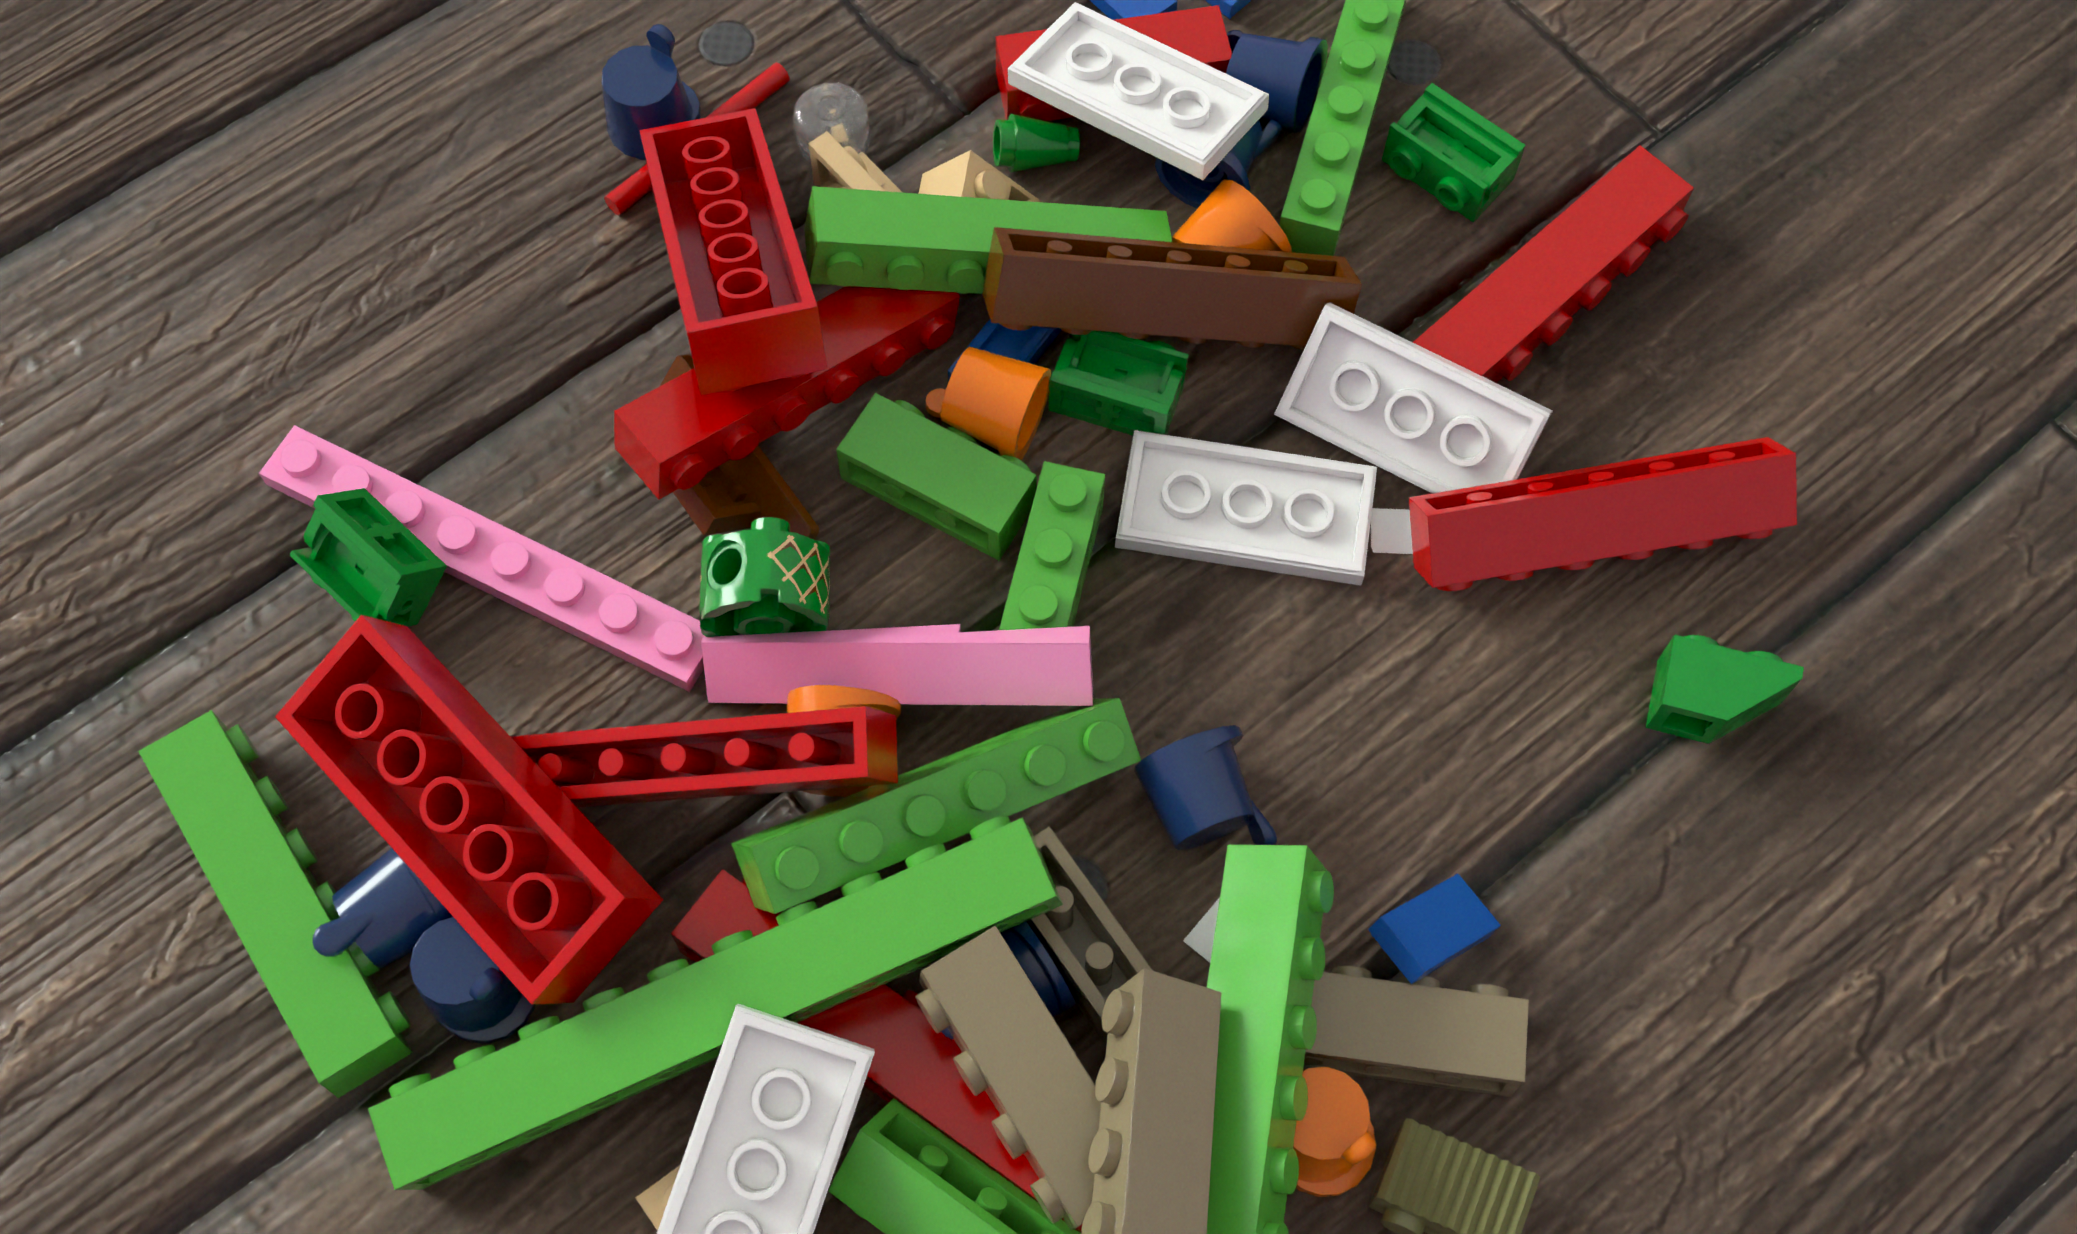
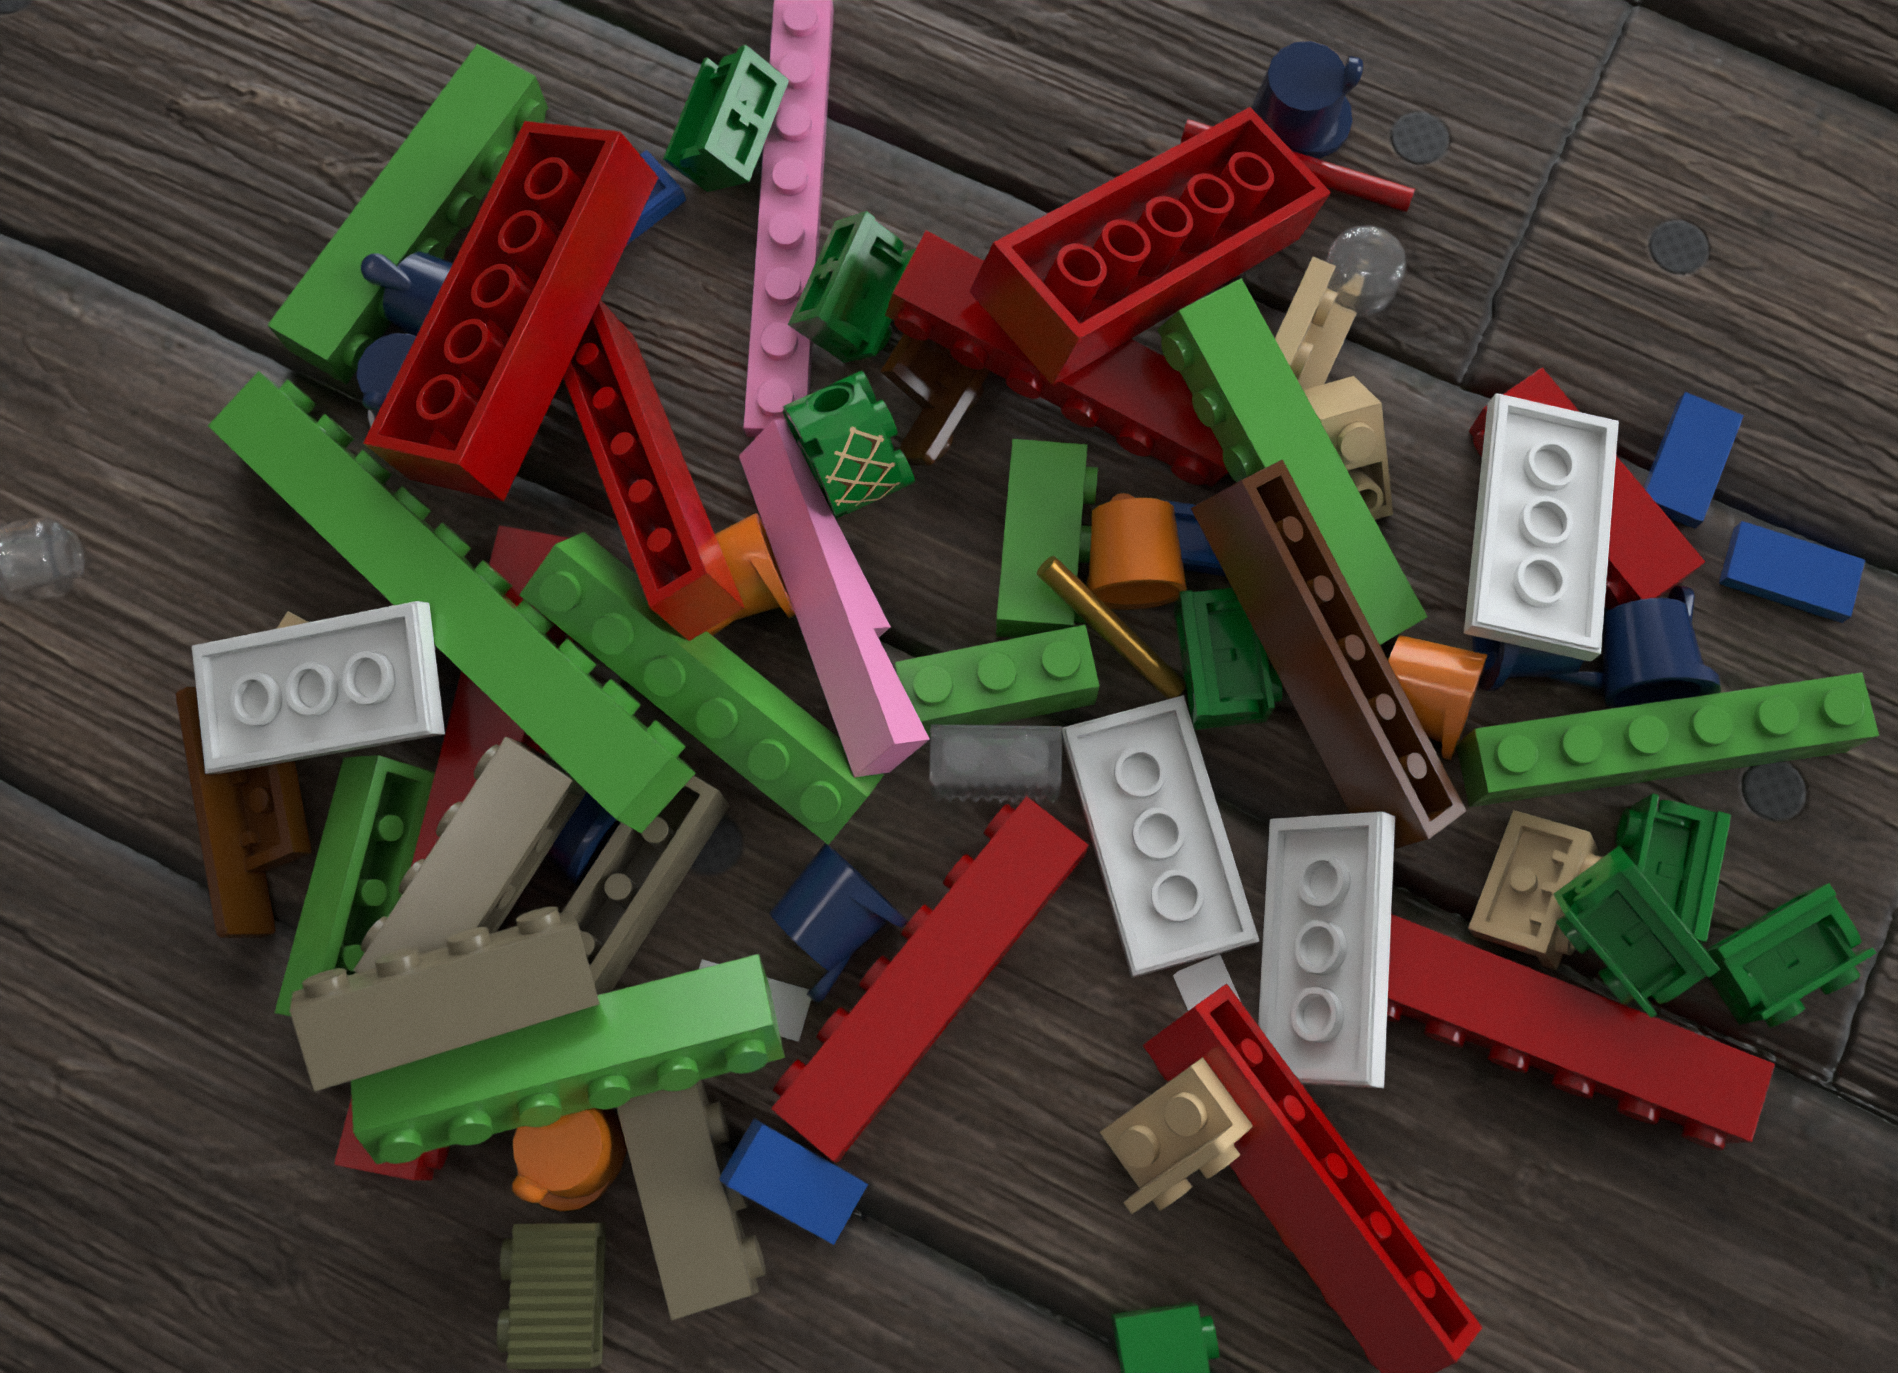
camera: 70 degrees right, 10 degrees up
(609, 522) = (851, 289): none -> green hinge
(1033, 143) = (1450, 460): green cone -> none
(1051, 449) = (1111, 627): none -> pearl gold bar
(1128, 596) = (995, 762): none -> clear brick
(1297, 739) = (929, 979): none -> red brick
(1422, 247) = (1518, 895): none -> tan bracket
(1500, 180) = (1632, 932): none -> green hinge
(1525, 592) = (1175, 1133): none -> tan bracket
(1554, 109) = (1786, 957): none -> green hinge

